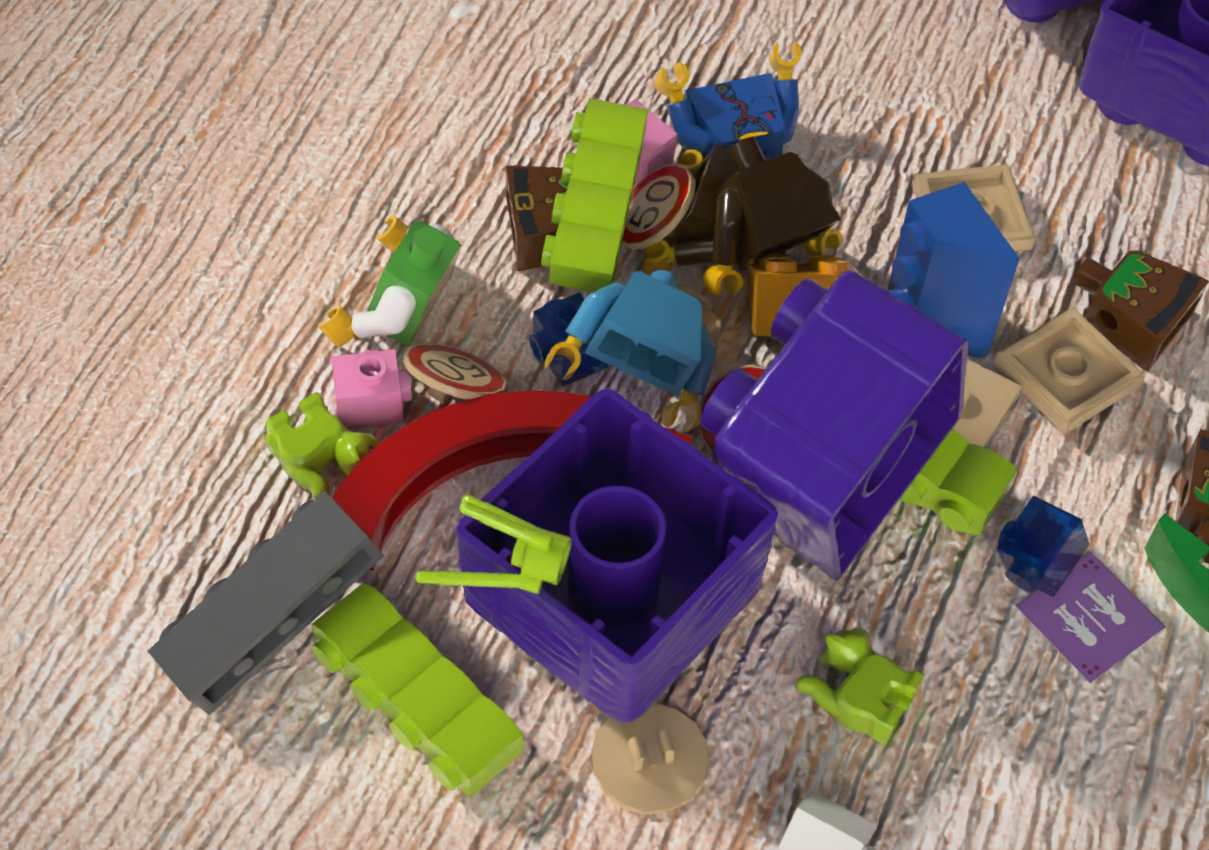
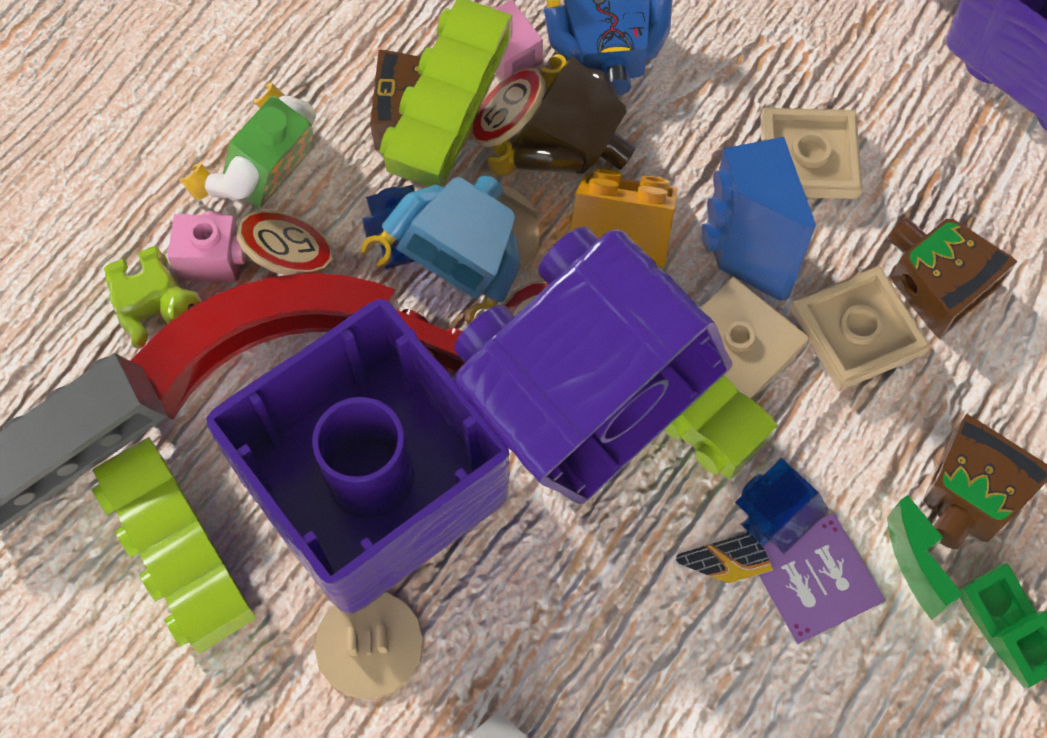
camera: 15 degrees right, 10 degrees up
(537, 552) = (266, 461): lime plant -> none
(767, 212) = (604, 131): dark brown torso -> none
(870, 685) = (576, 620): lime animal -> none
(998, 612) = (728, 559): none -> sticker

